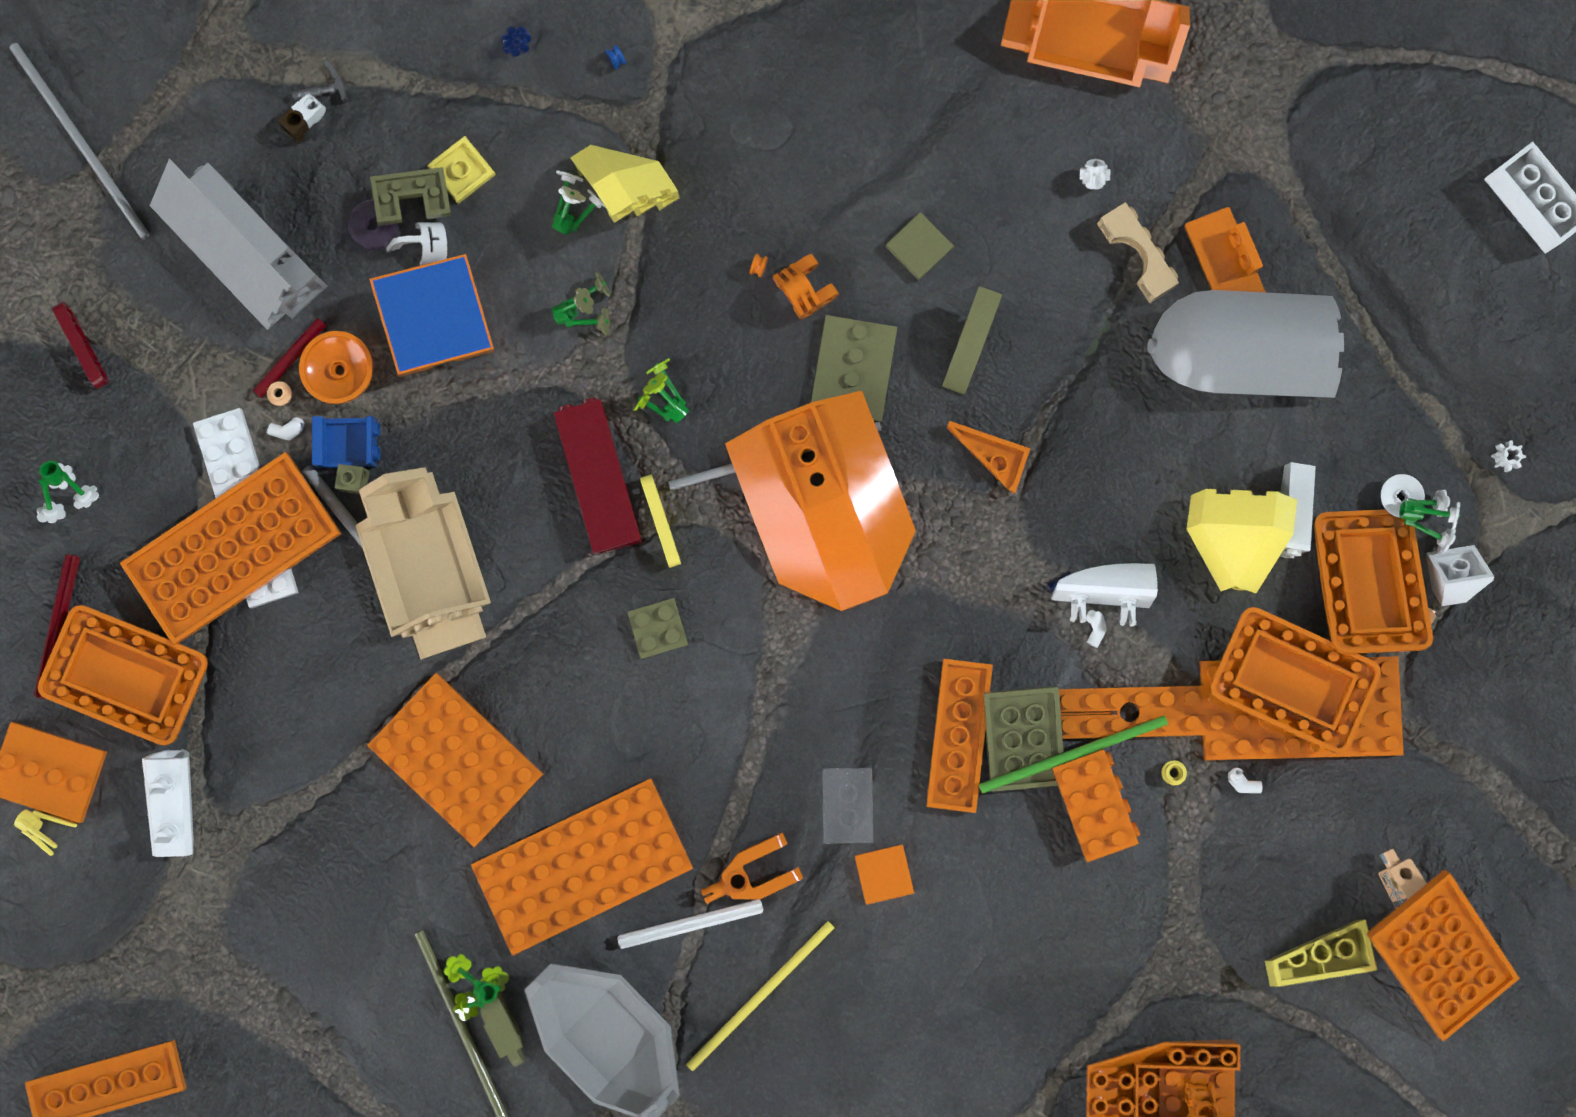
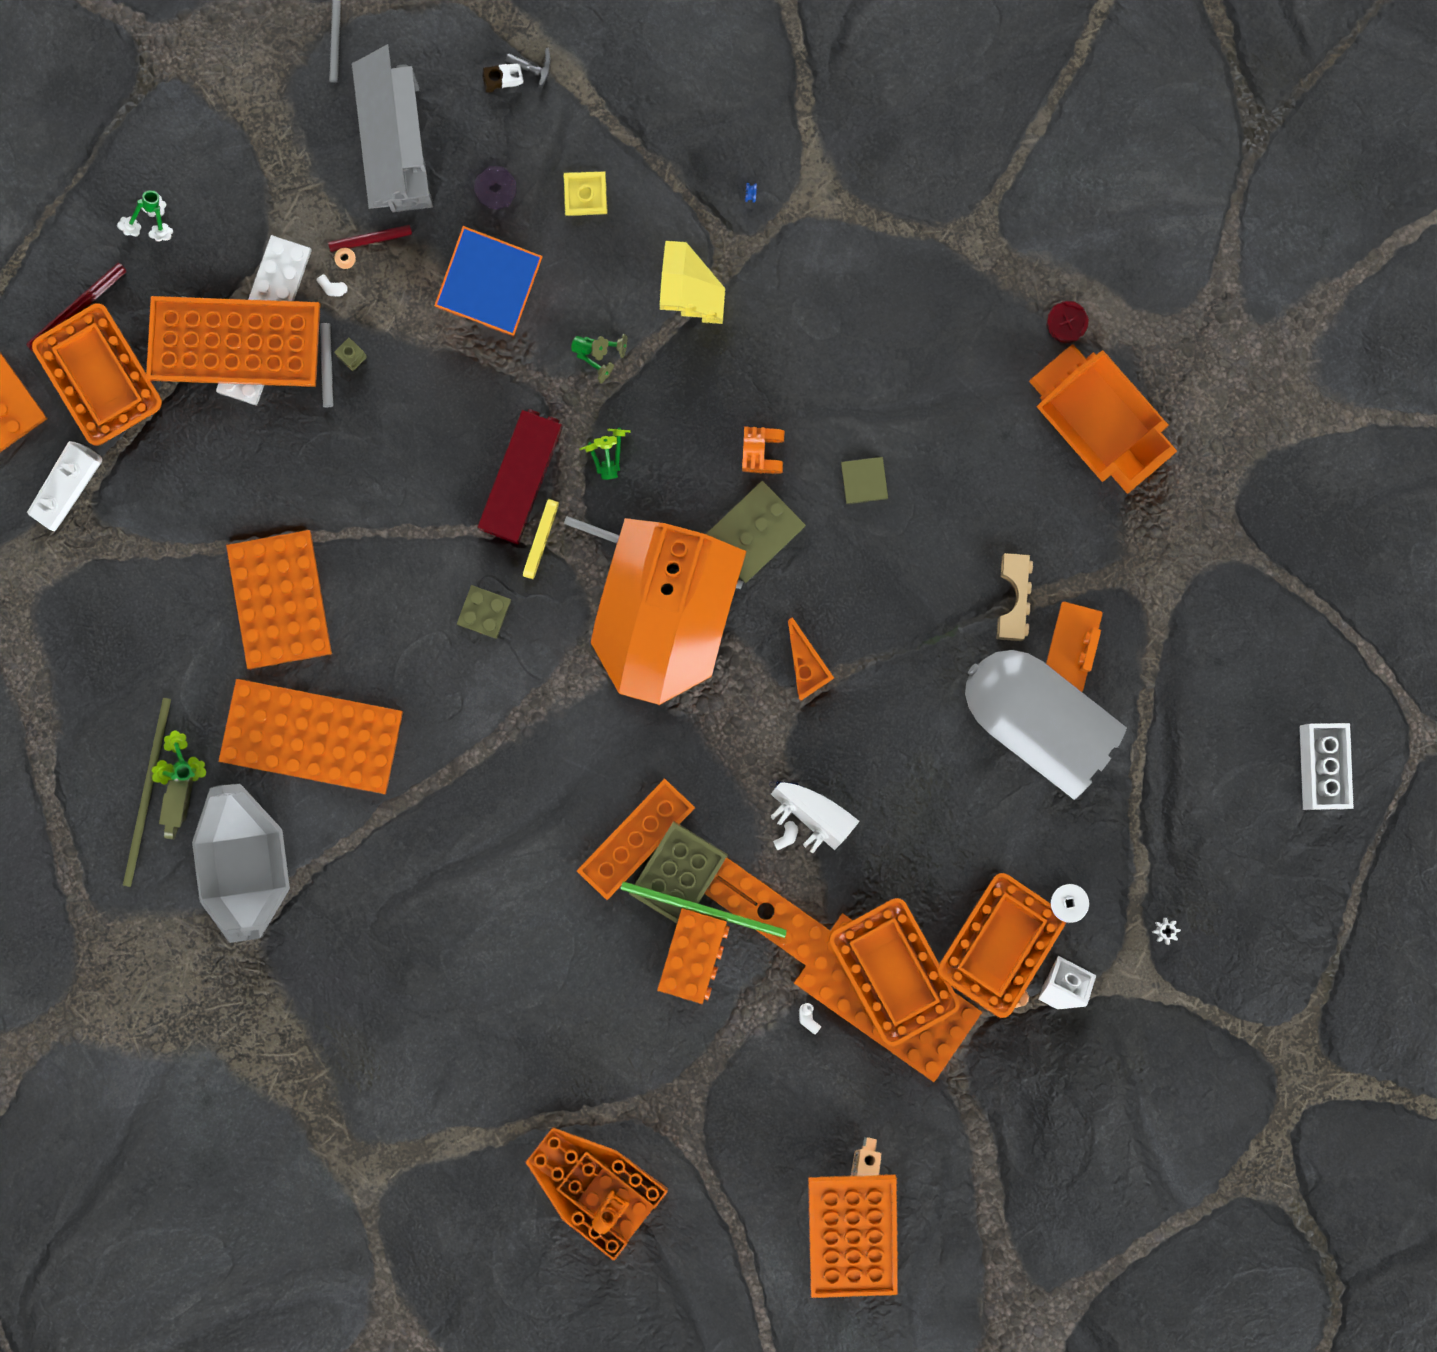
camera: 30 degrees right, 0 degrees up
(80, 345) = (234, 125): dark red beam -> none
(323, 358) = (392, 256): orange dish -> none
(345, 442) = (365, 325): blue panel -> none
(422, 562) = (356, 447): tan panel -> none
(424, 183) = (527, 172): olive plate -> none
(439, 247) = (529, 237): white helmet -> none
(515, 41) = (689, 130): clear blue plant -> none
(563, 219) = (629, 280): plant -> none
(690, 924) = (355, 830): white axle -> none
(748, 891) = (410, 837): orange piece -> none
(758, 265) = (741, 411): orange bush -> none
(785, 970) = (372, 914): light yellow piece -> none
(847, 805) = (523, 830): clear tile -> none
(884, 874) = (513, 896): orange tile -> none
(972, 340) = (849, 572): olive slope -> none
(1095, 174) = (1024, 520): white gear -> none
(1181, 776) = (772, 975): light yellow plate -> none
(1240, 534) = (933, 844): light yellow panel -> none
(1299, 484) = (986, 857): white slope -> none
(1327, 956) = (778, 1180): light yellow wedge -> none
(1412, 510) = (1067, 918): plant -> none

